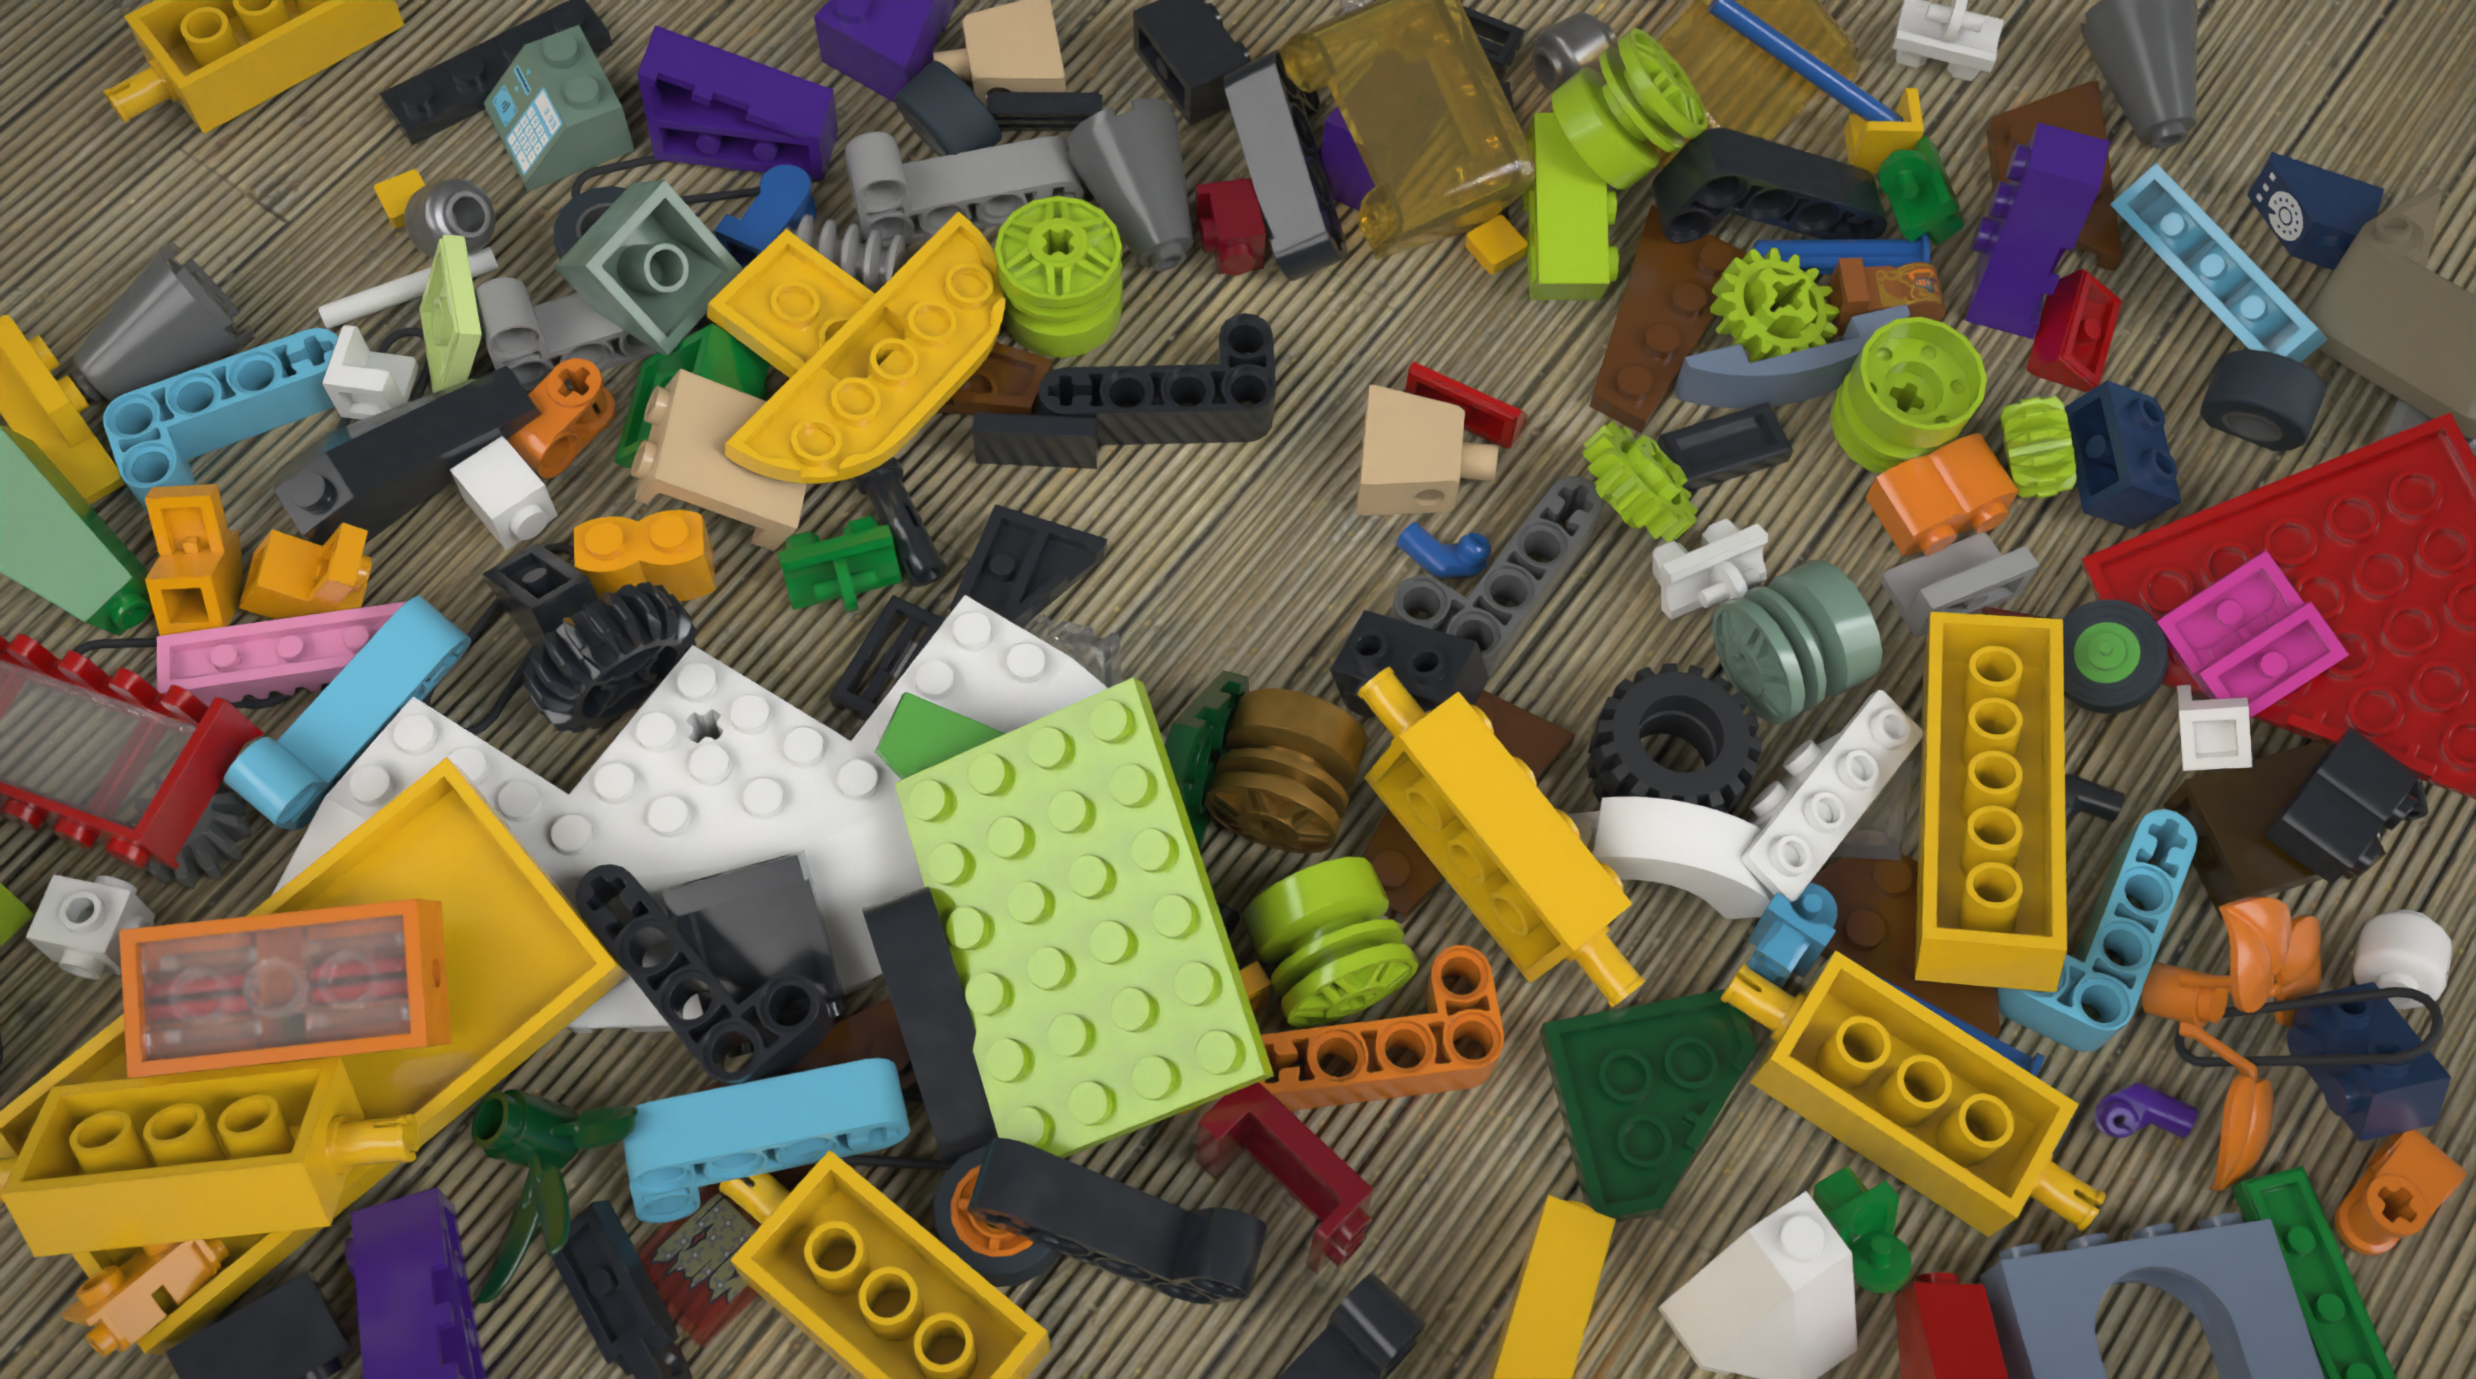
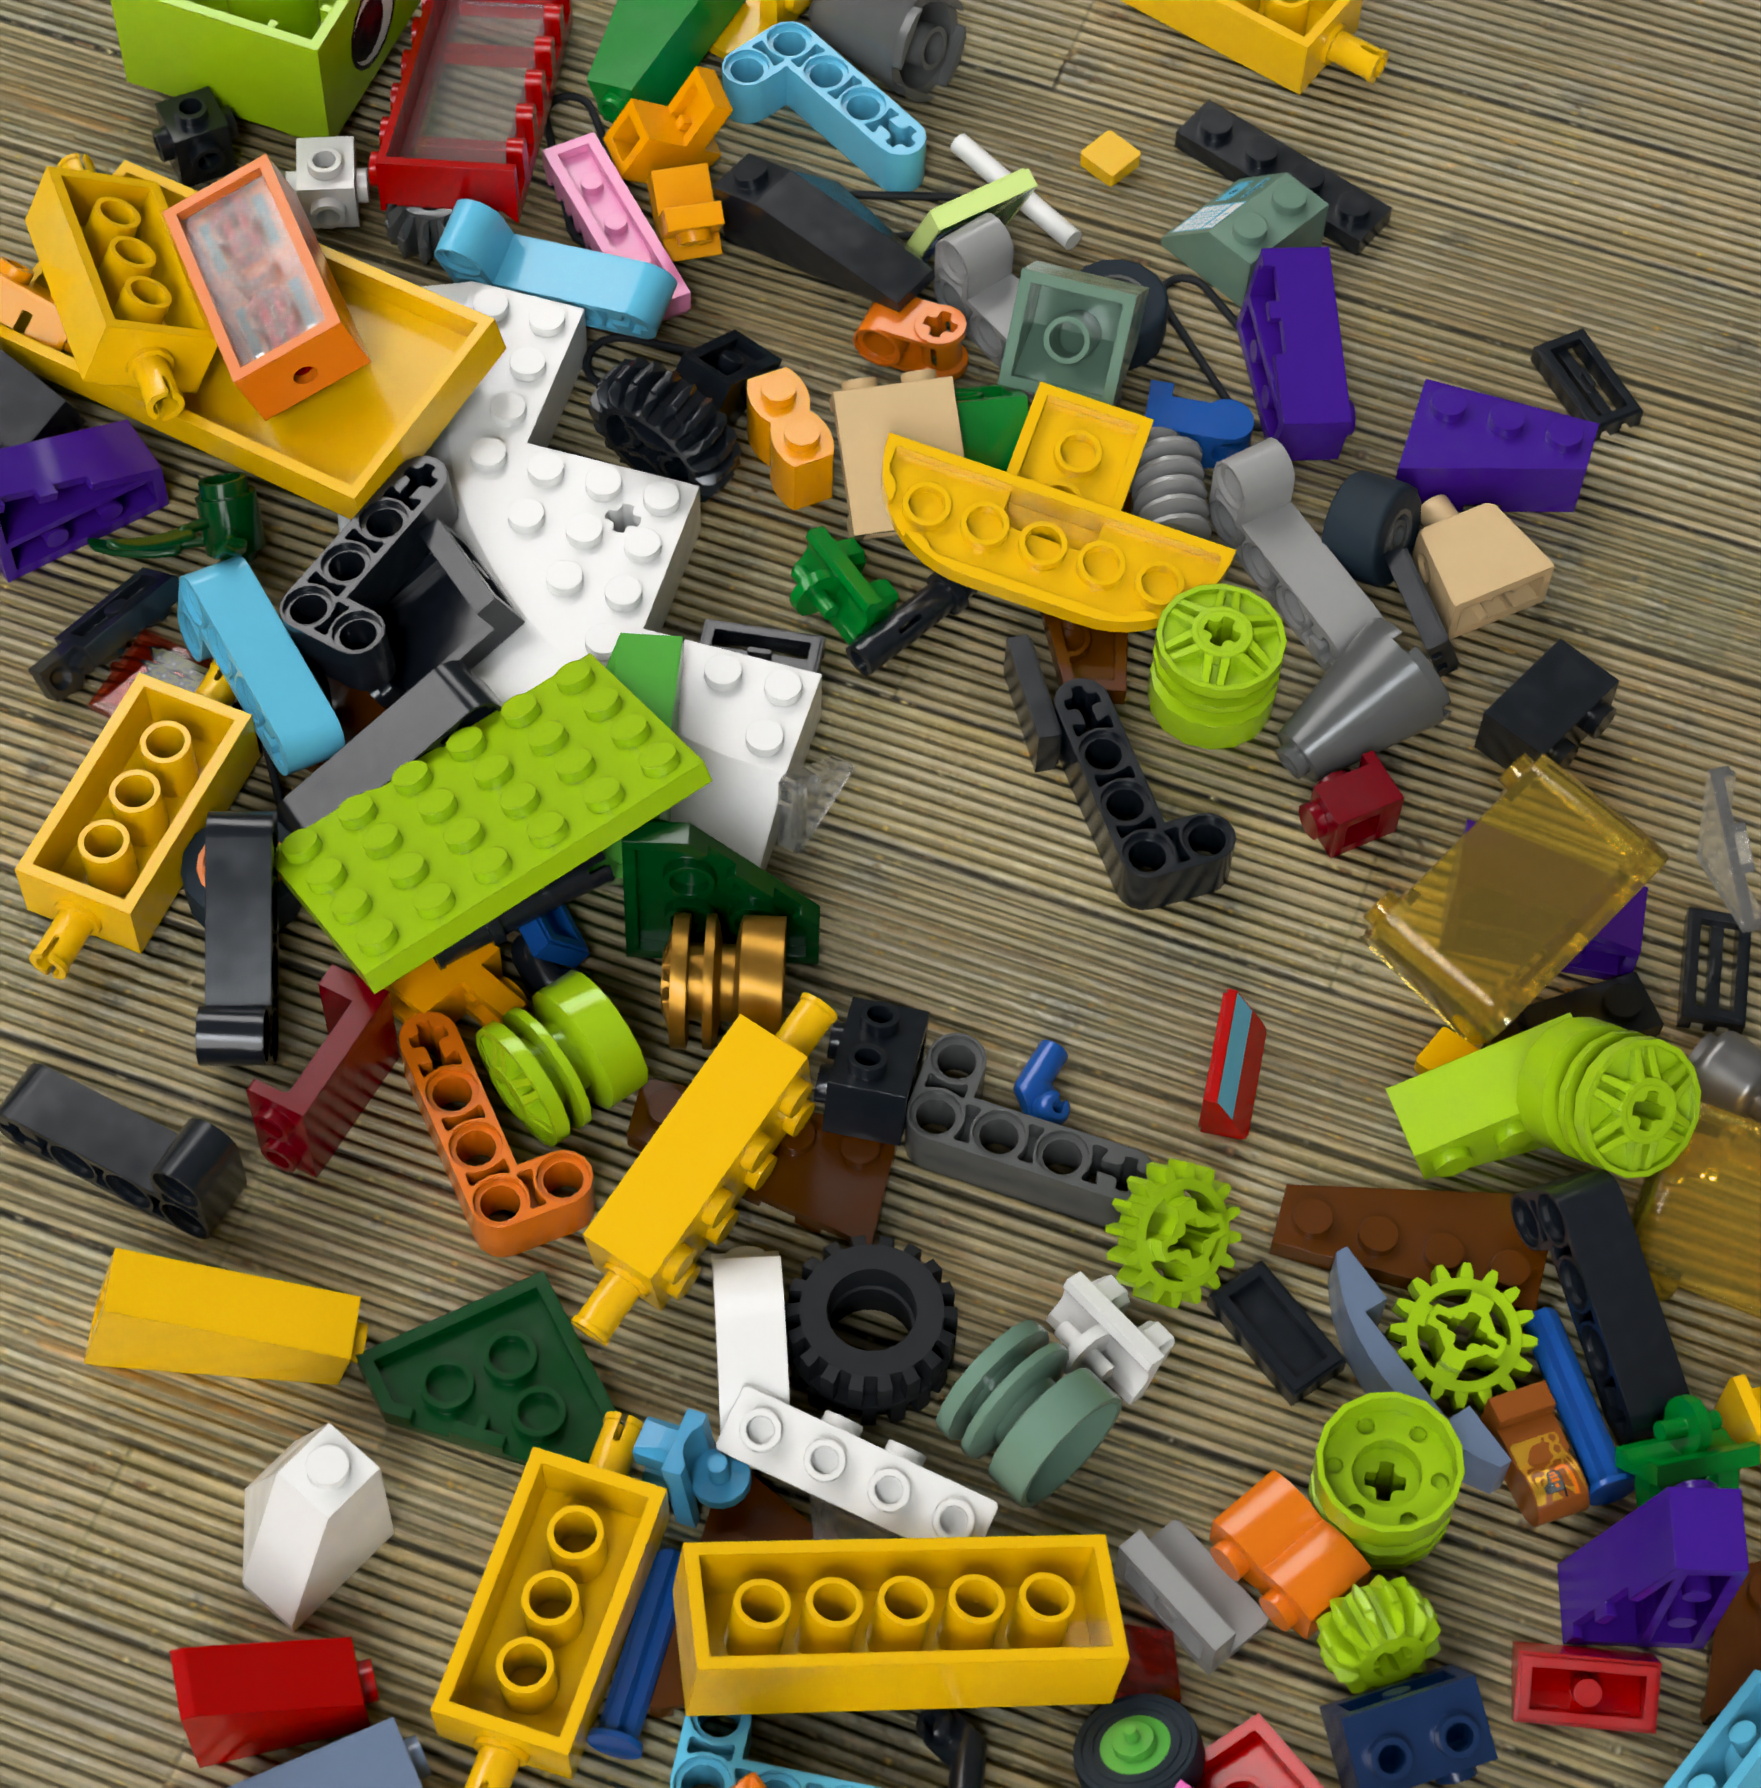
camera: 75 degrees right, 5 degrees down
(364, 380) = (901, 185): white panel -> none
(449, 209) = (1085, 188): flat silver head -> none
(504, 493) = (821, 320): white brick -> none
(1026, 564) = (888, 730): black wing -> none
(1285, 165) = (1418, 825): beam -> none
(1416, 455) = (1139, 1029): tan torso -> none
(1867, 1227) = (389, 1579): green hips -> none

